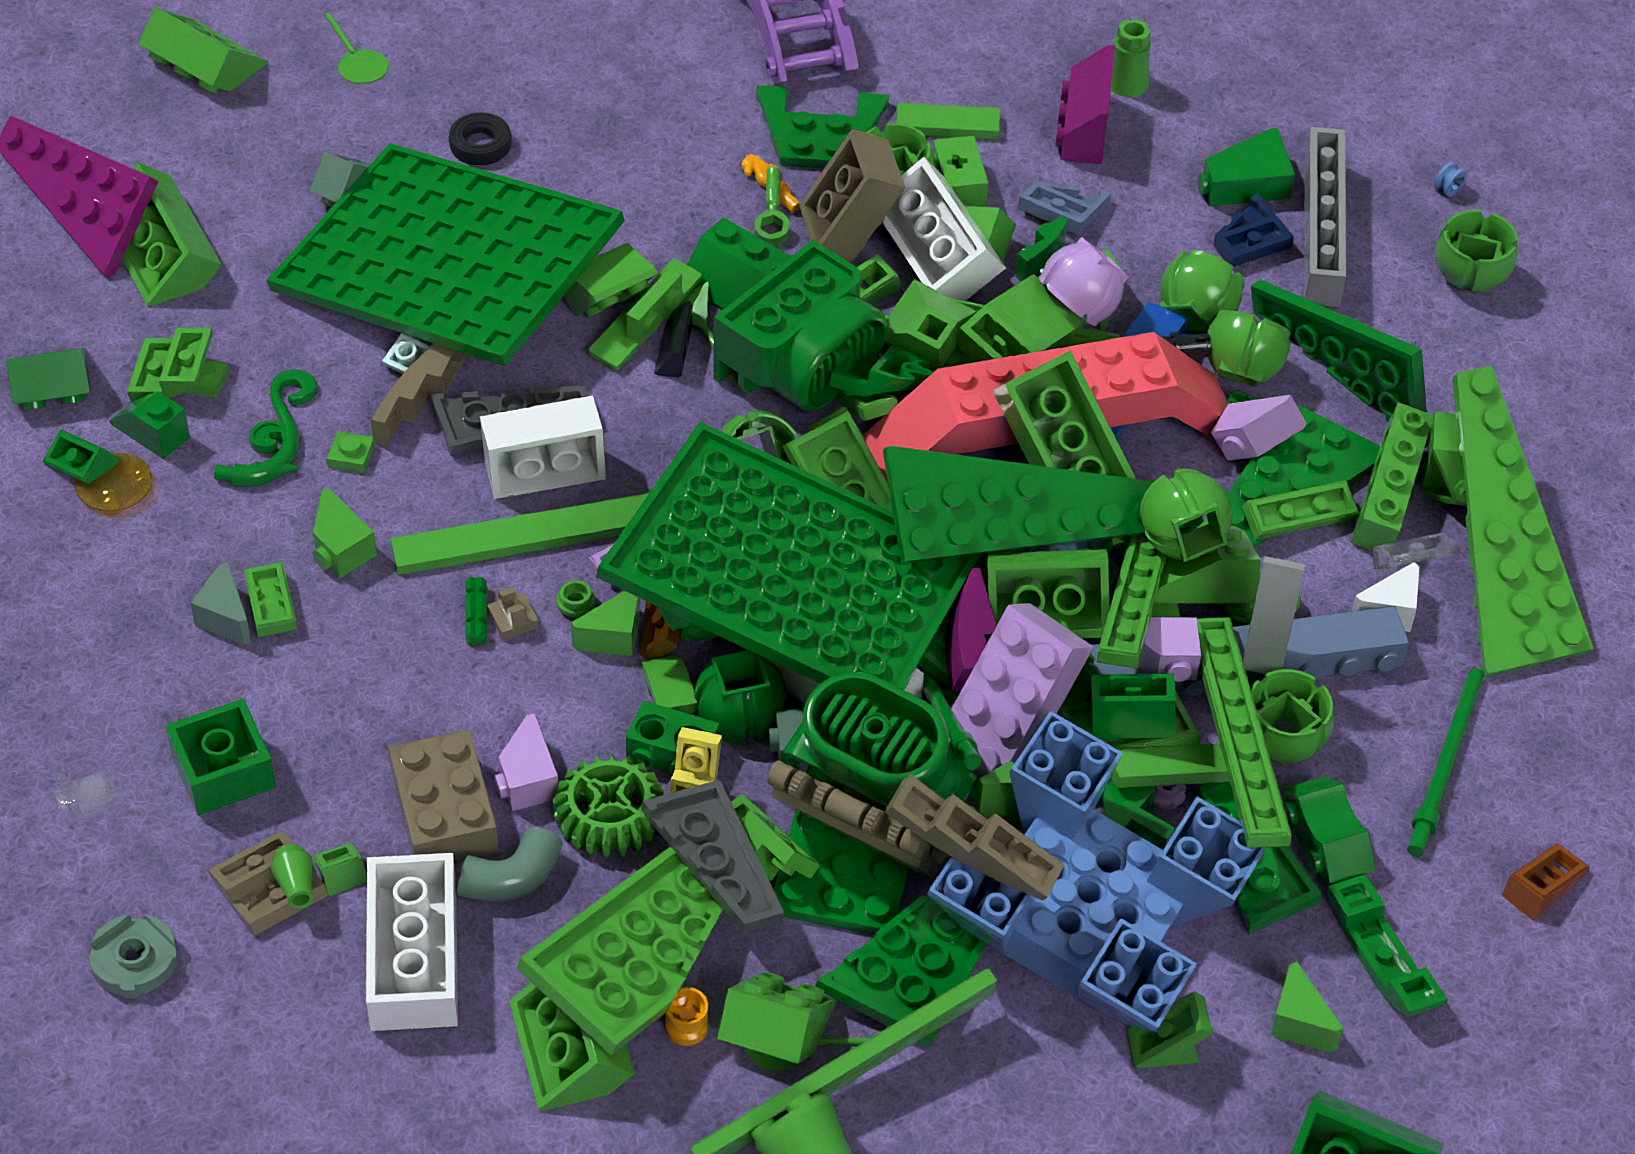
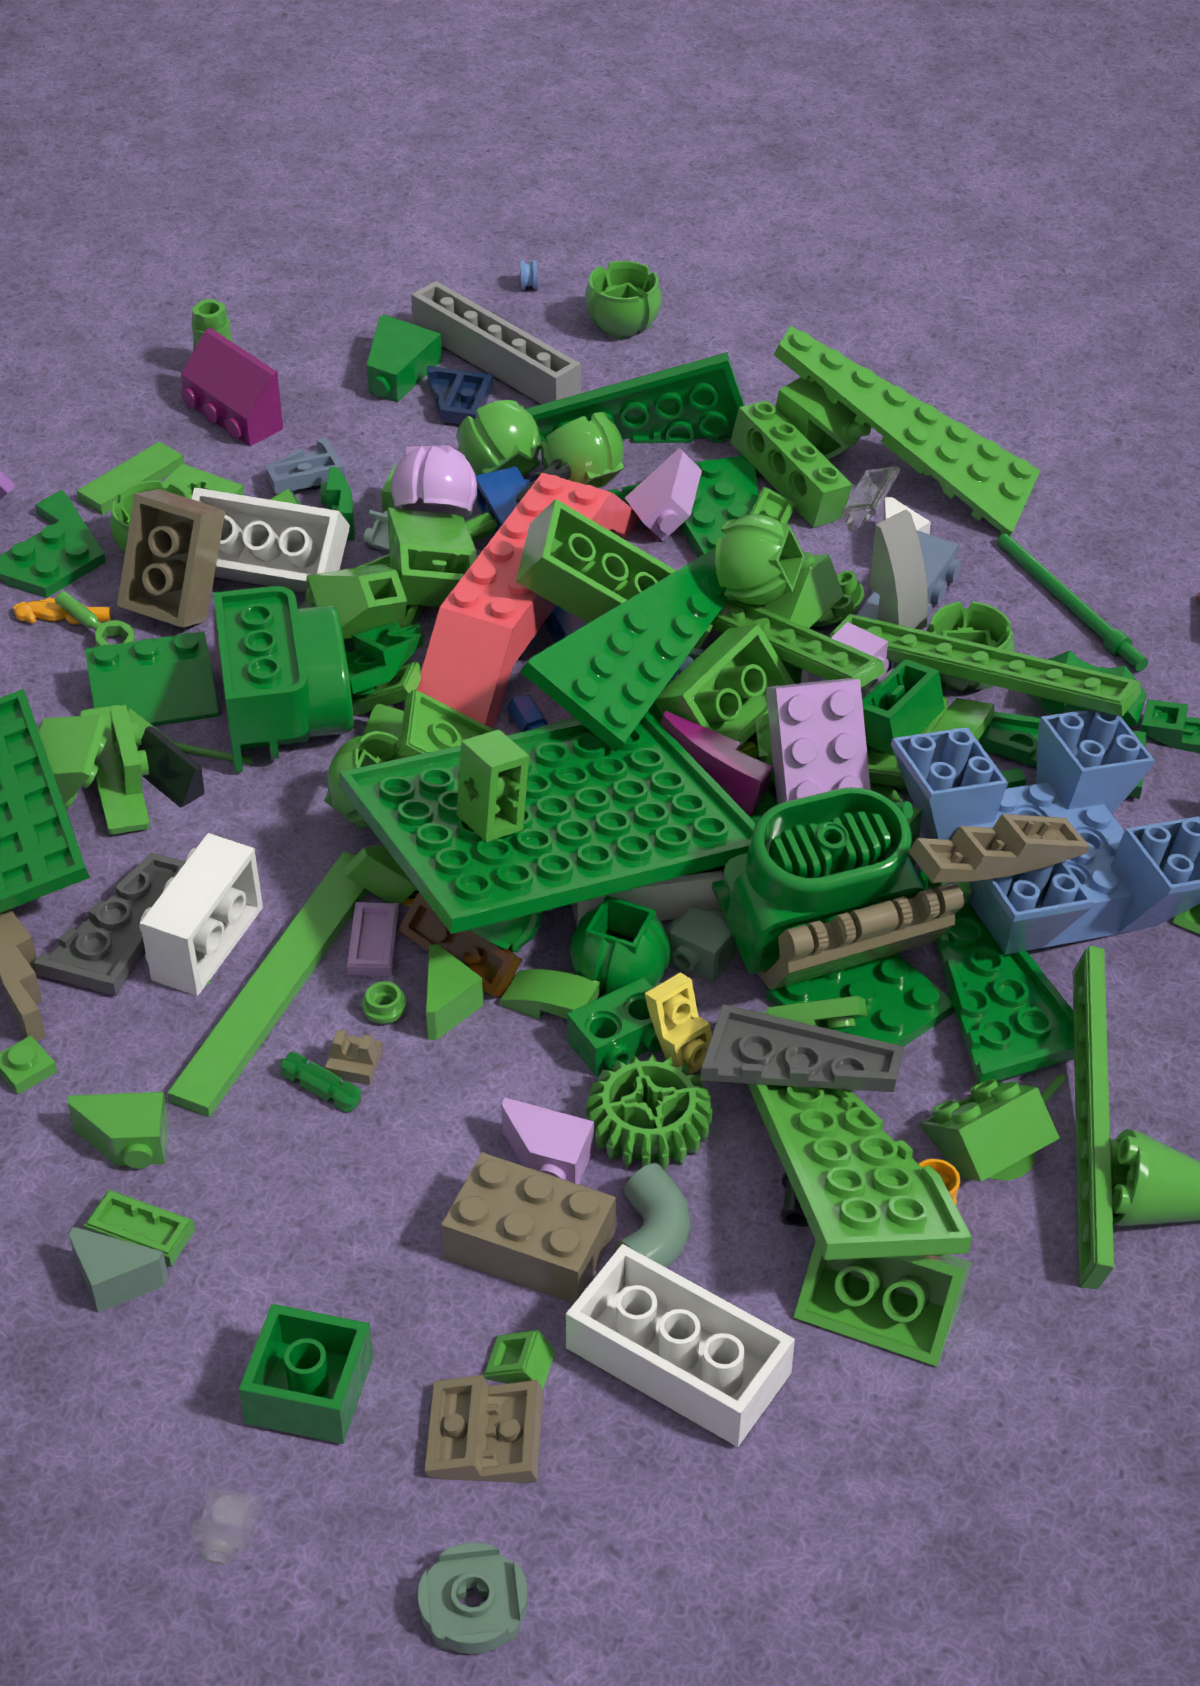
camera: 50 degrees left, 5 degrees down
(294, 874) = (512, 1393): bright green cone -> none
(739, 505) = (487, 797): none -> bright green brick

